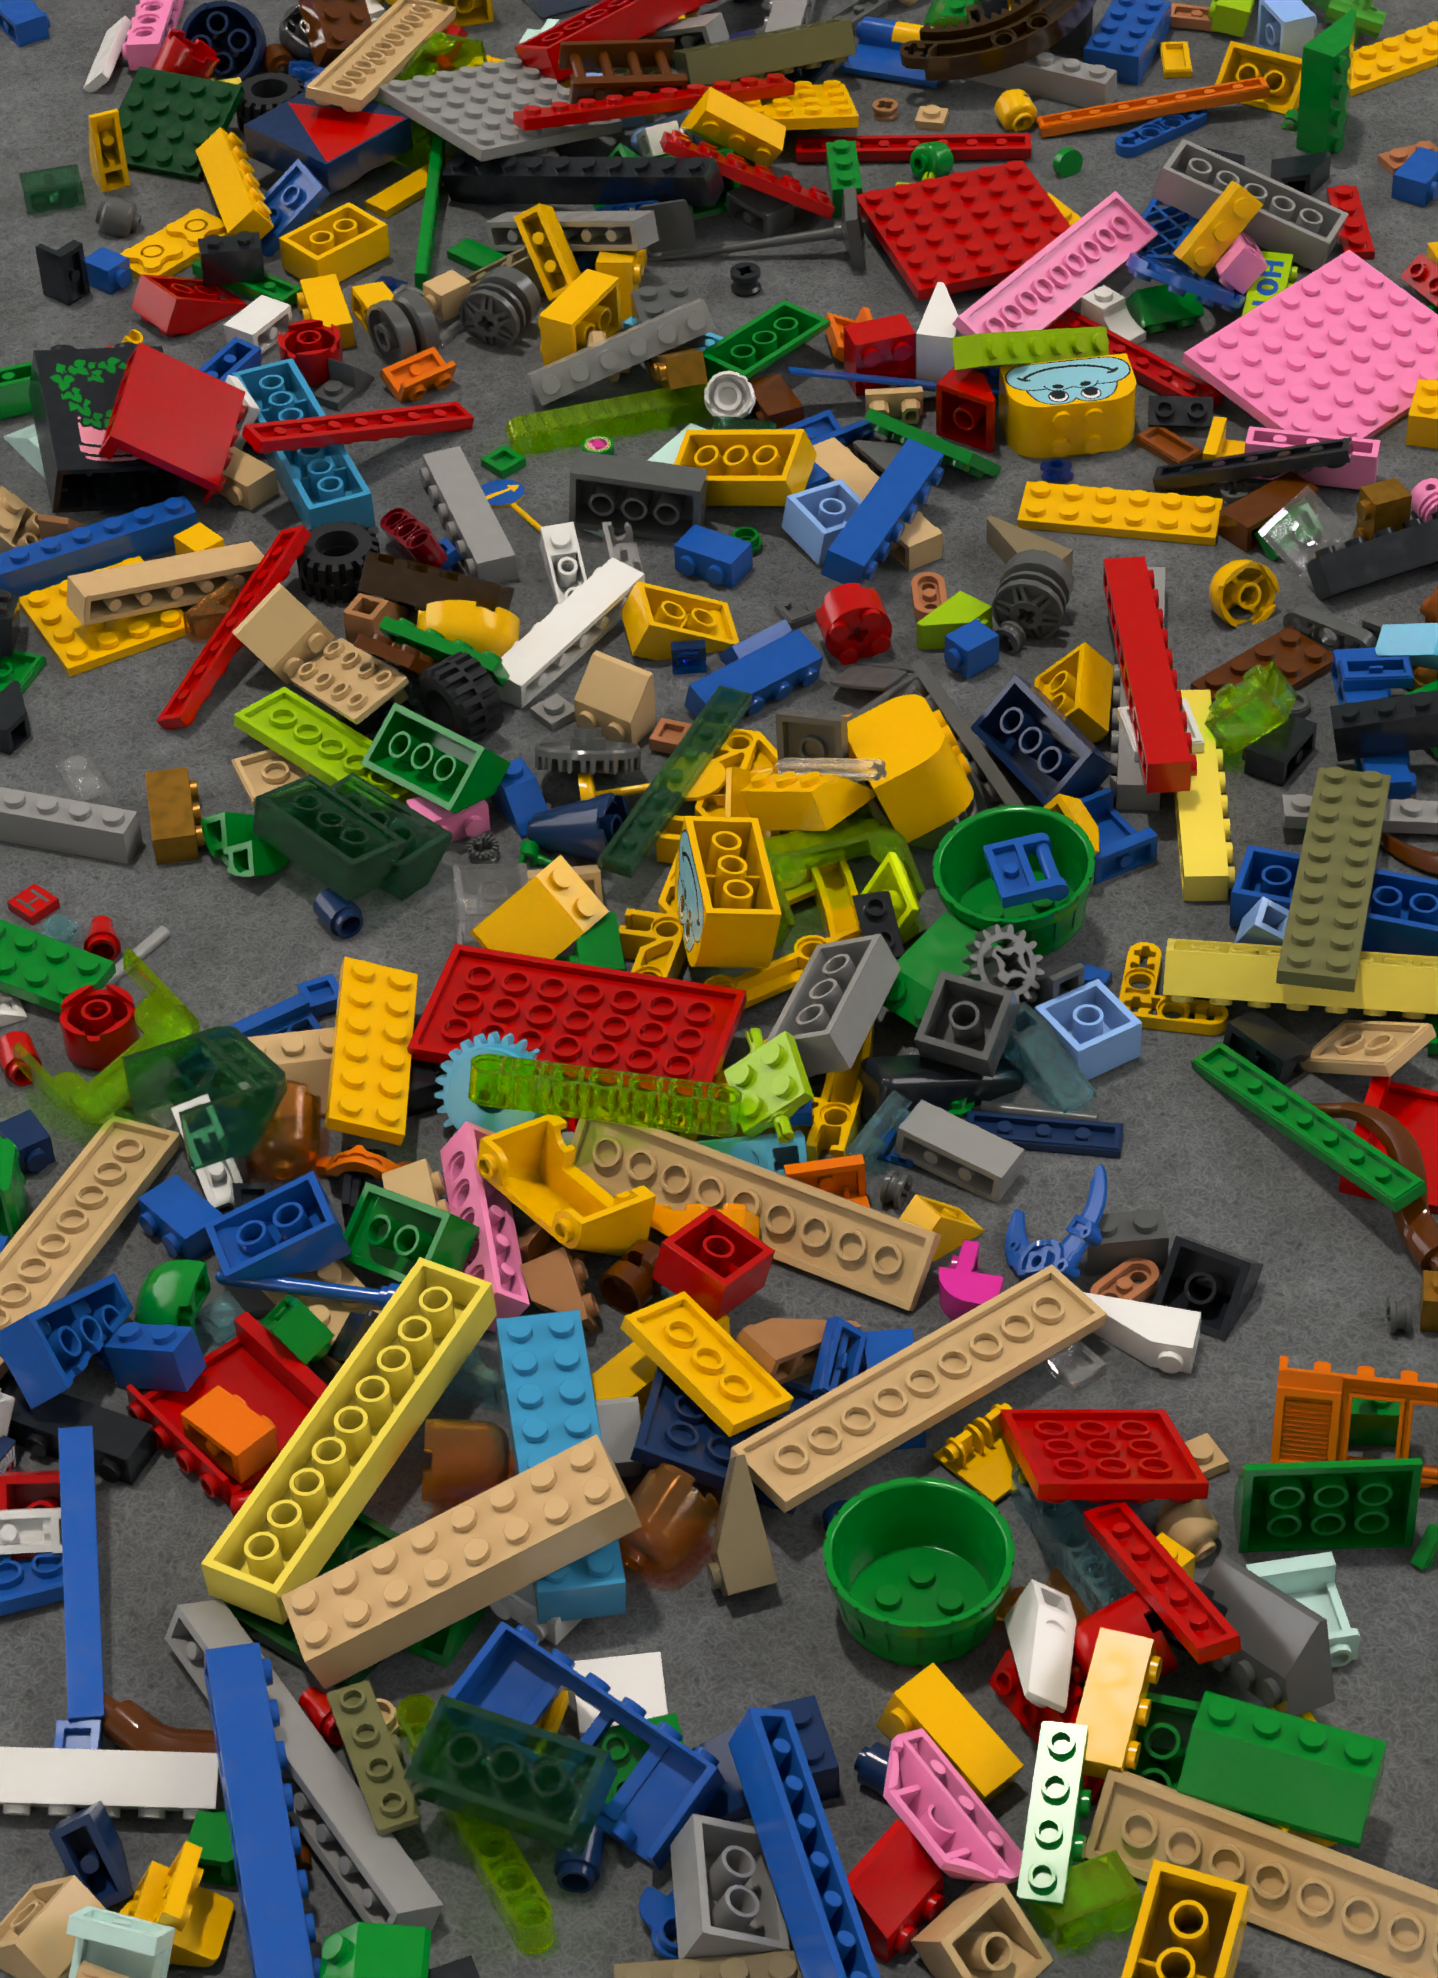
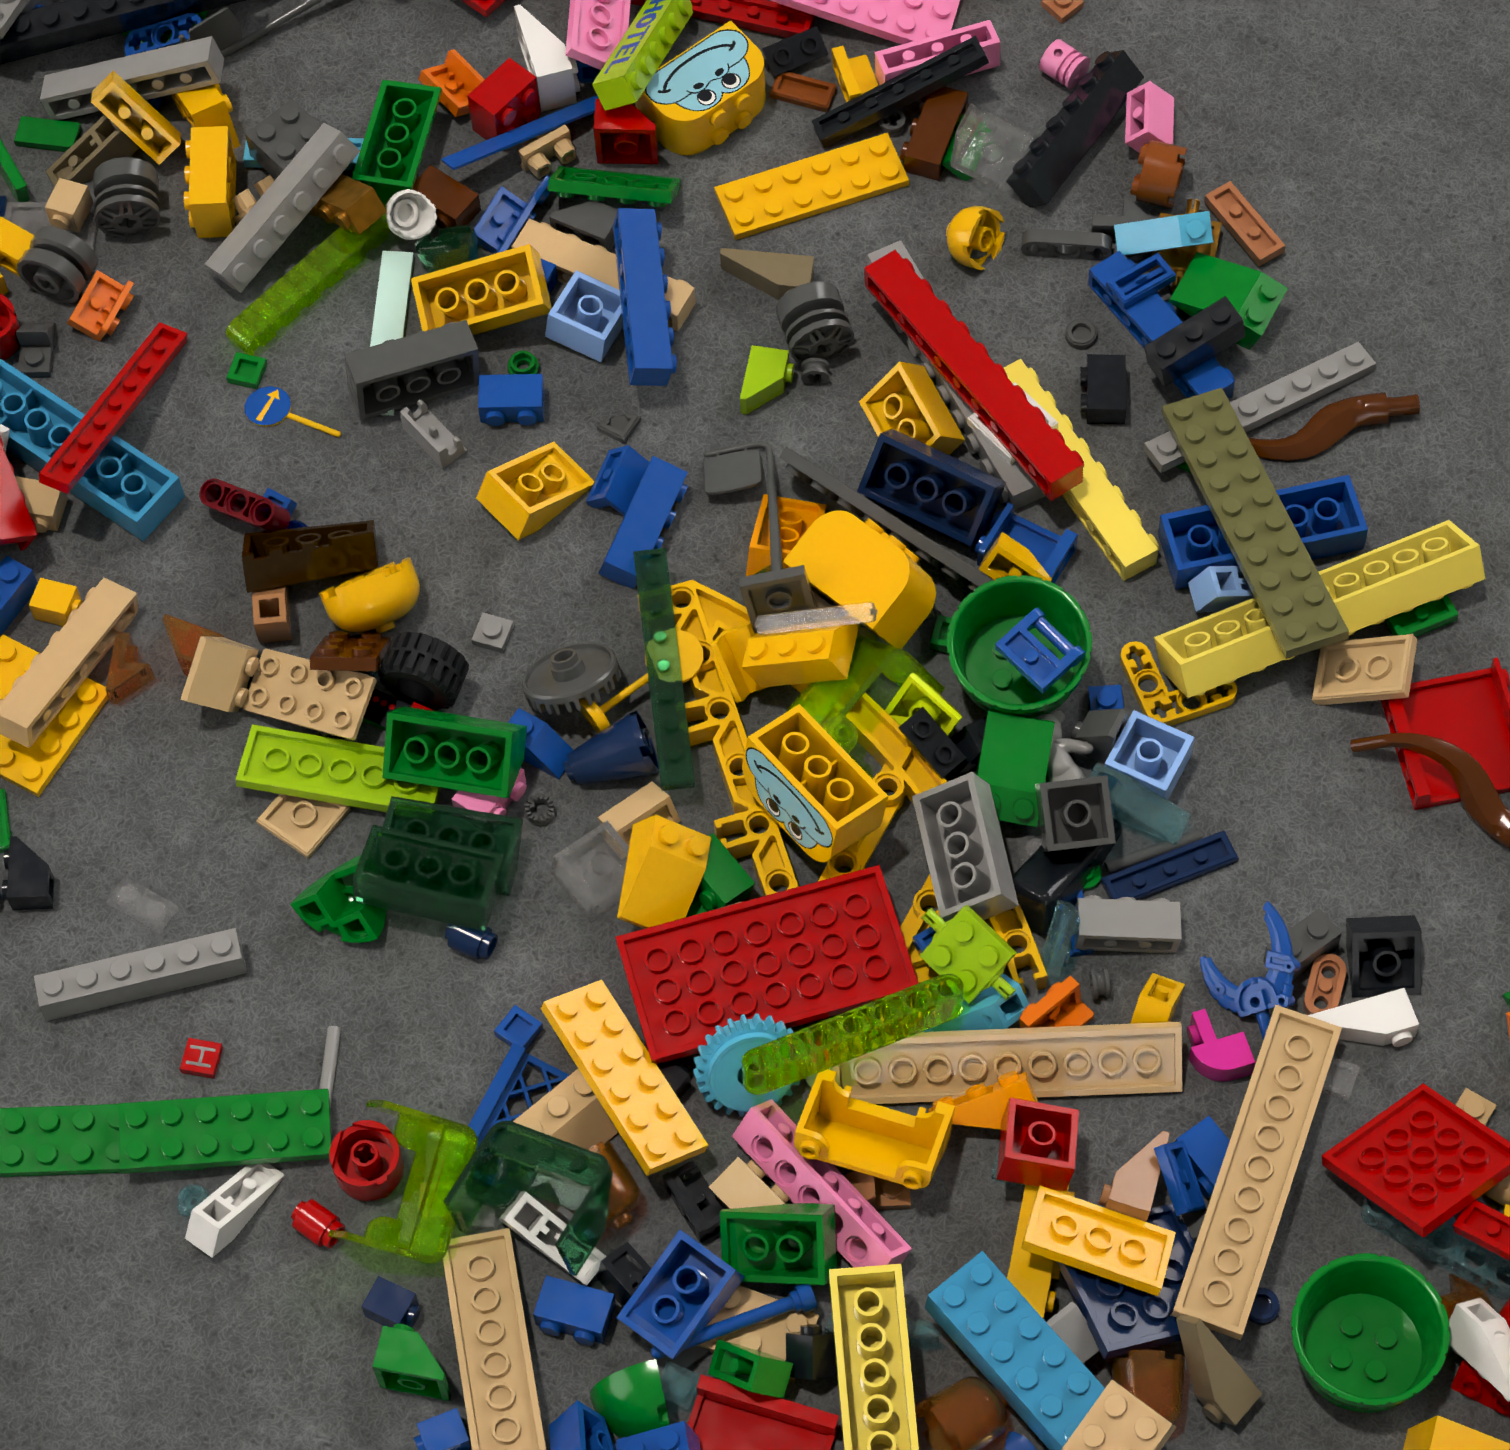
camera: 30 degrees left, 20 degrees up
(59, 928) = (251, 1079): clear light blue plate -> none
(102, 938) = (294, 1069): red cone -> none
(174, 815) = (256, 907): pearl gold brick -> none
(223, 644) = (164, 683): red plate -> none
(335, 560) = (202, 580): black tyre -> none
(356, 1160) = (683, 1185): orange helmet -> none
(435, 646) = (361, 625): green plate -> none
(468, 516) = (267, 452): light grey brick -> none
(532, 849) = (580, 793): green hand -> none
(558, 1286) = (921, 1221): medium nougat slope -> none
(562, 559) = (397, 475): white slope -> none
(567, 632) = (449, 545): white brick -> none
(598, 444) = (318, 315): tile -> none
(616, 699) = (548, 604): tan slope -> none
(630, 1281) = (968, 1174): reddish brown wheel -> none
(667, 735) = (612, 613): nougat plate -> none
(688, 657) = (568, 520): clear blue plate -> none
(745, 279) = (319, 62): black wheel -> none
(854, 623) = (689, 423): red brick -> none
(927, 593) = (722, 358): nougat plate -> none
(971, 648) = (797, 401): blue brick -> none
(981, 1456) = (1322, 1195): yellow hinge -> none
(1005, 965) = (1067, 743): dark grey gear -> none
(1056, 471) = (727, 170): clear blue plate -> none
(1250, 707) = (1072, 368): clear neon green brick -> none
(1267, 1045) = (1284, 703): black hinge -> none
(1291, 651) = (1039, 311): reddish brown plate -> none
(1309, 1127) = (1368, 769): green tile -> none
(1382, 506) = (1039, 101): pearl gold brick -> none

